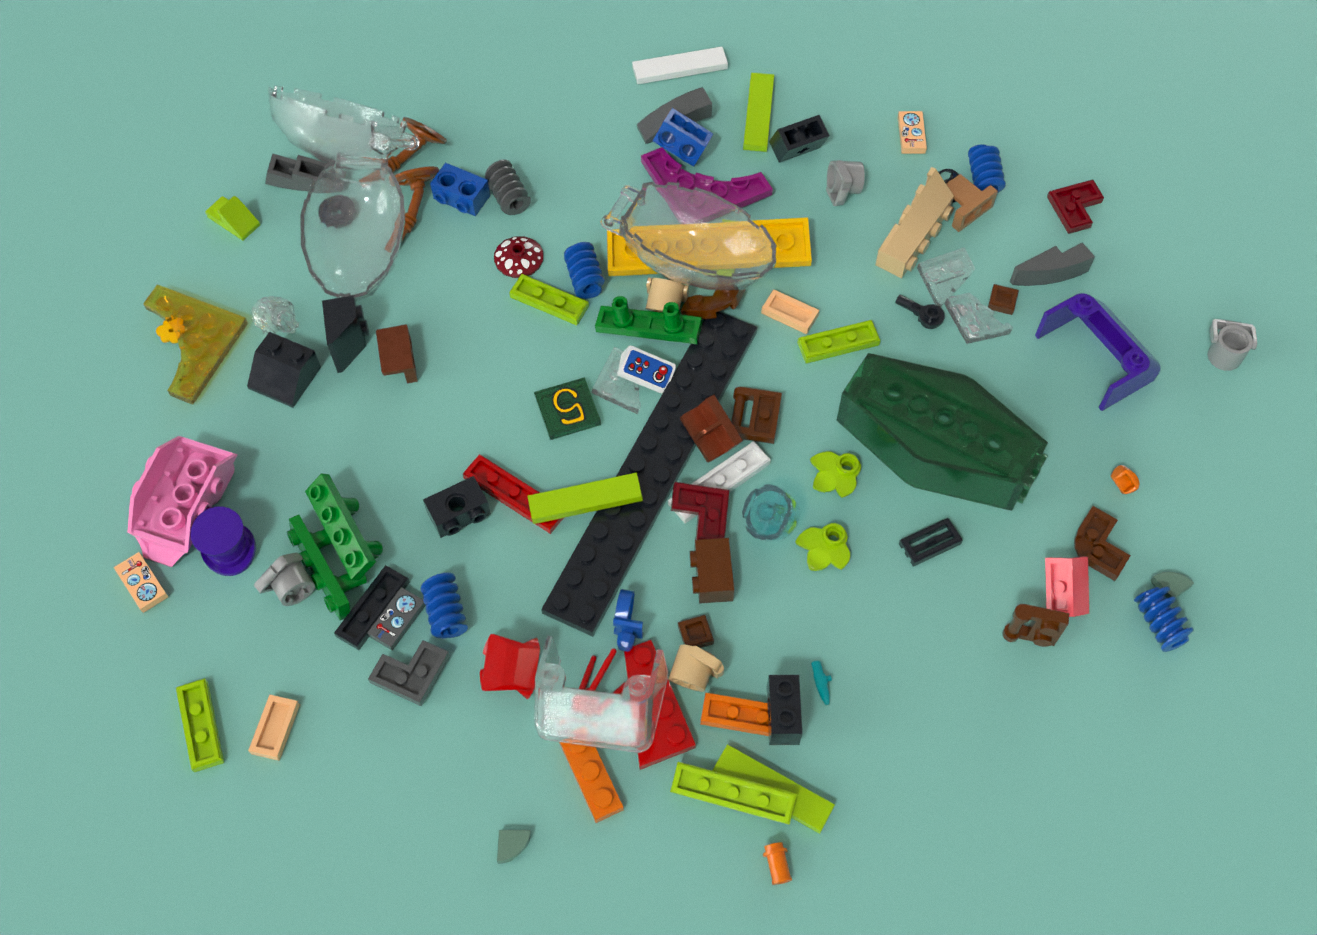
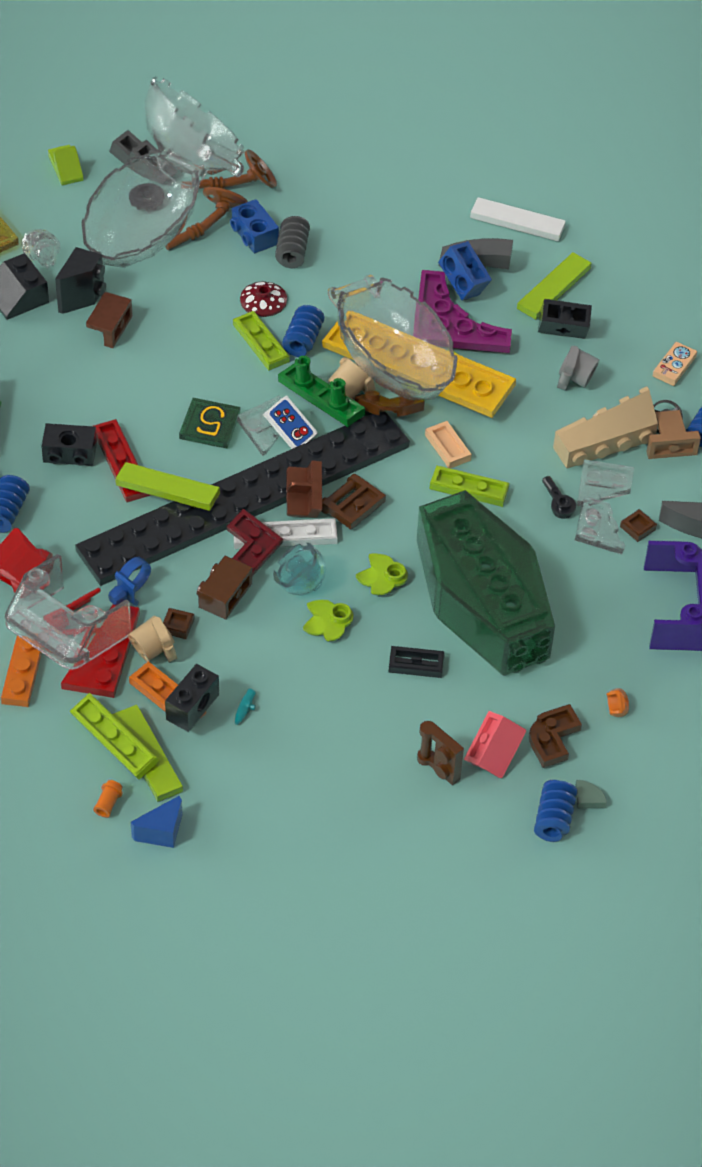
camera: 30 degrees right, 10 degrees down
(851, 860) = (159, 825): none -> blue slope

